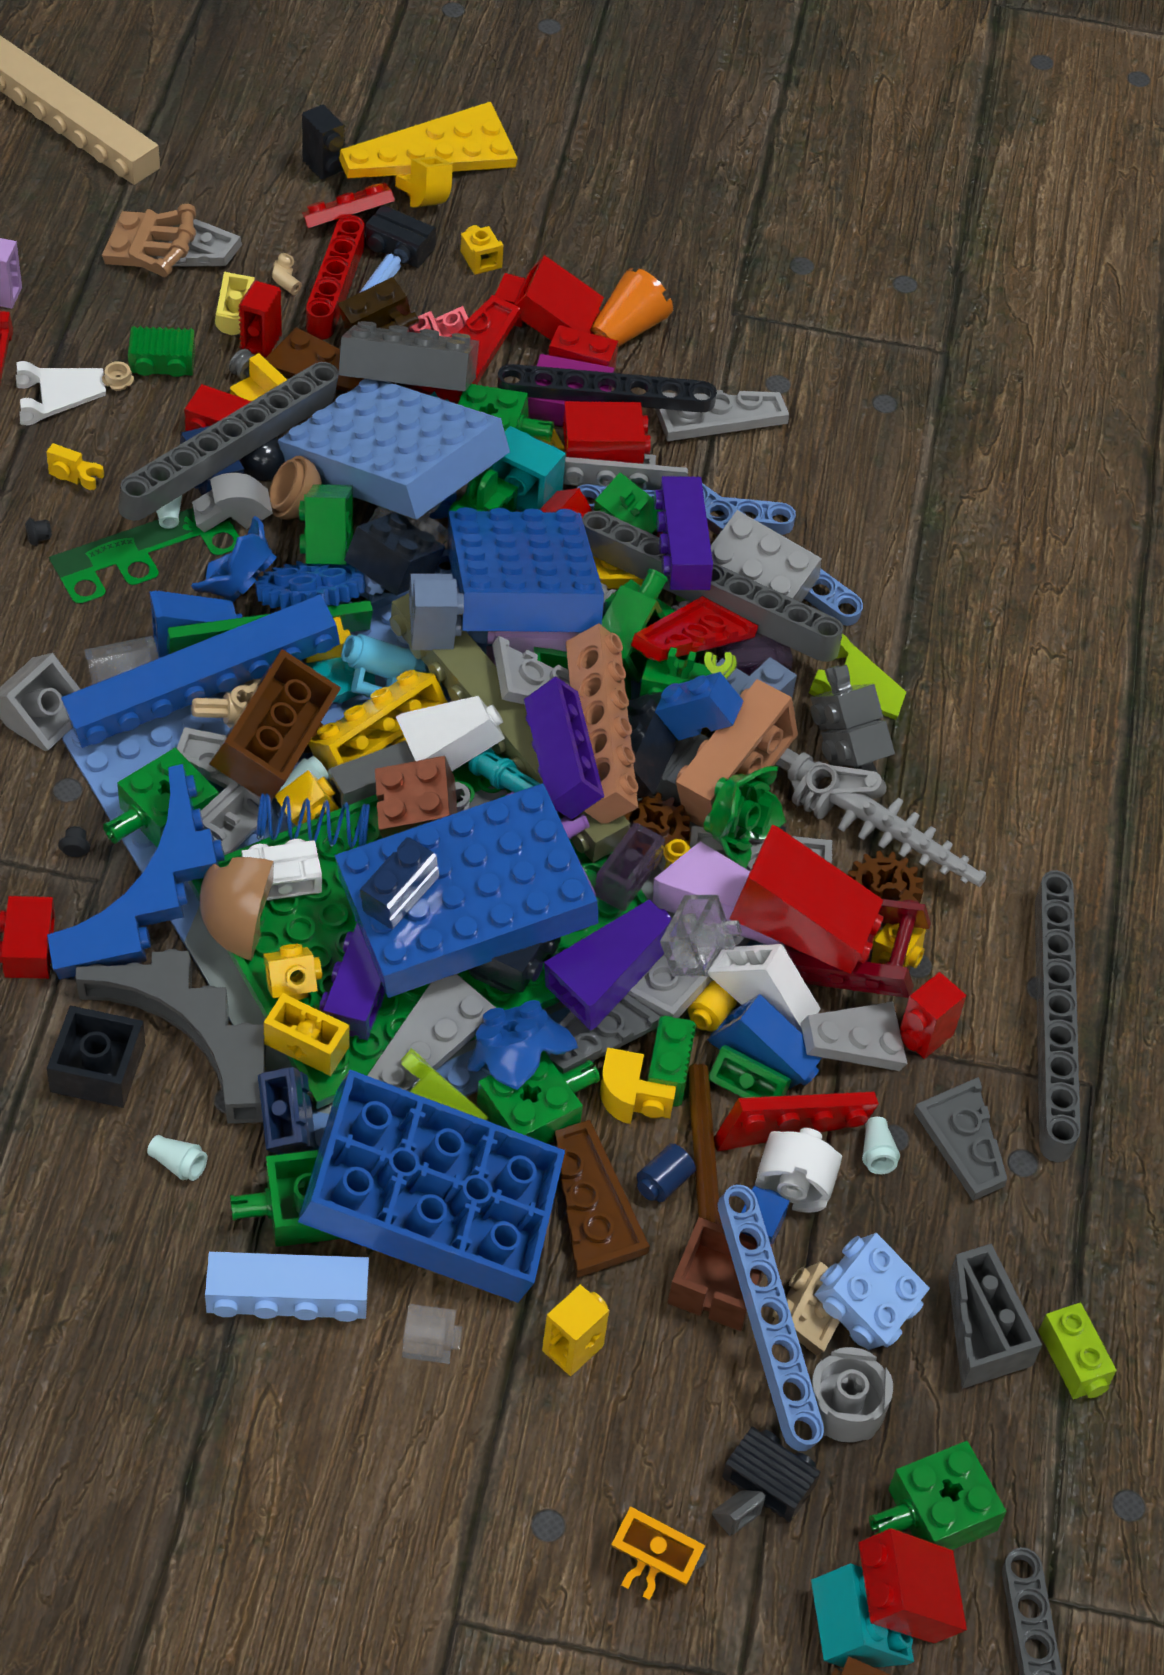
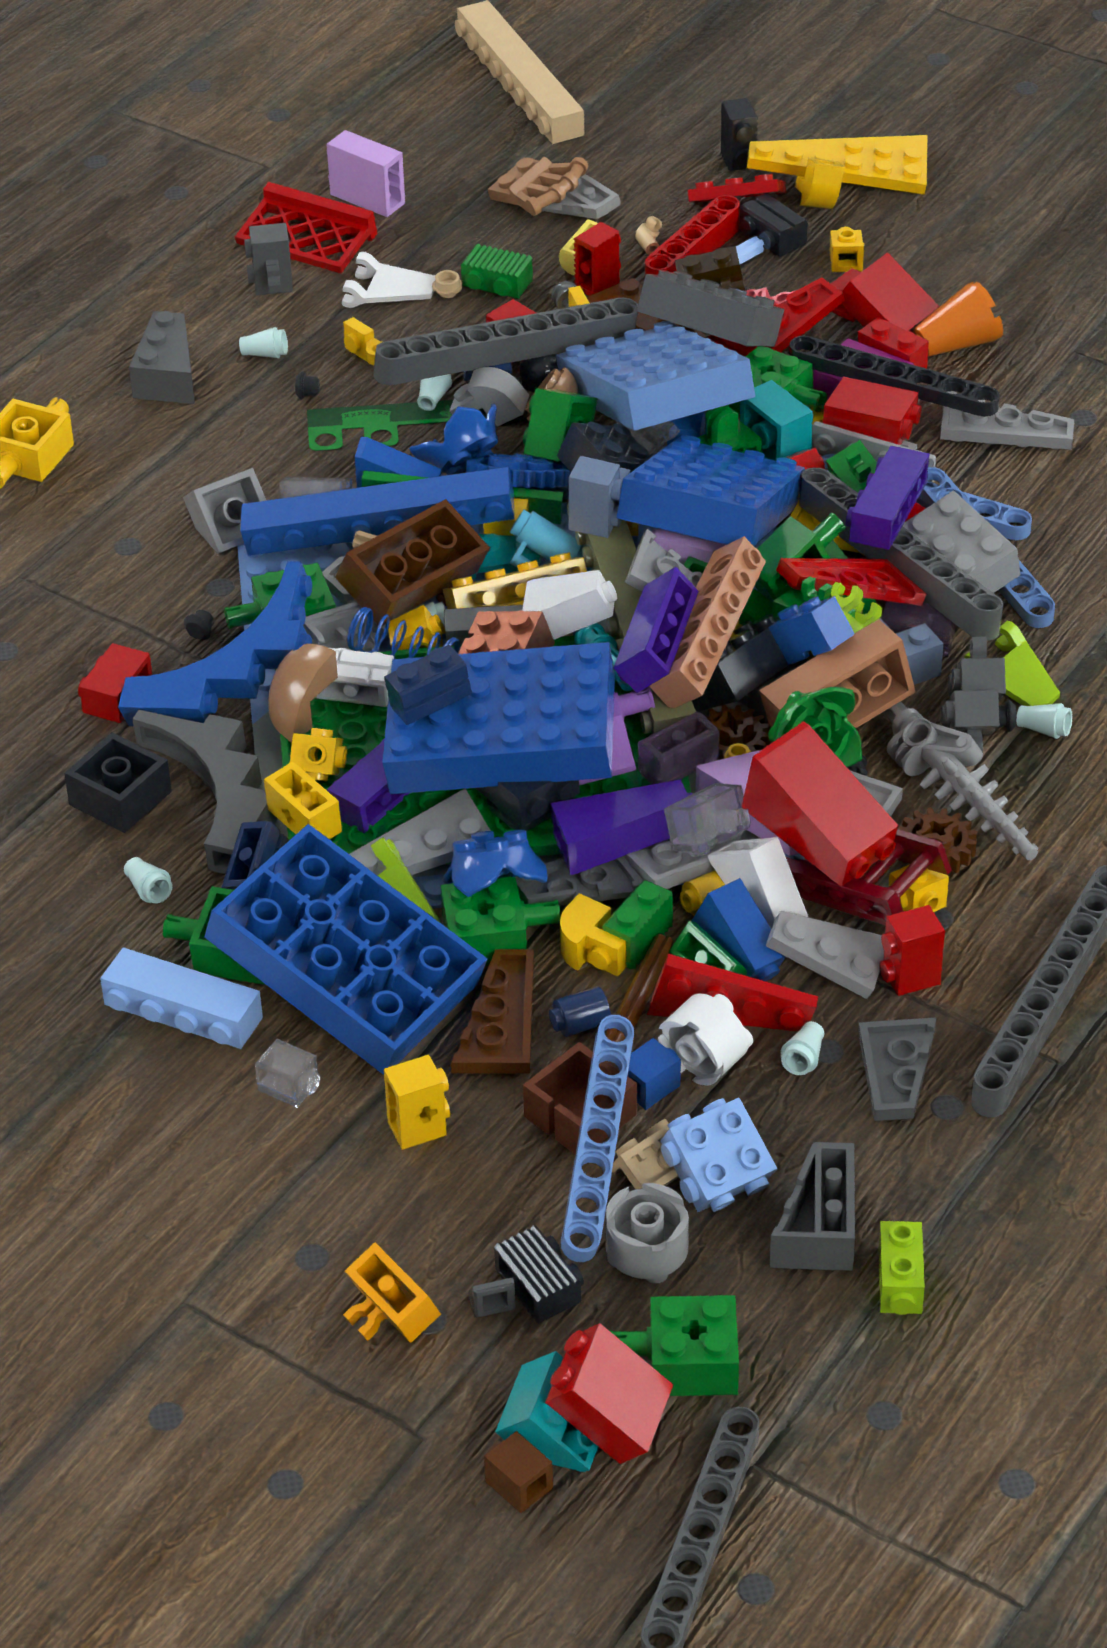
camera: 30 degrees right, 10 degrees down
(912, 725) = (1046, 719): none -> light aqua cone

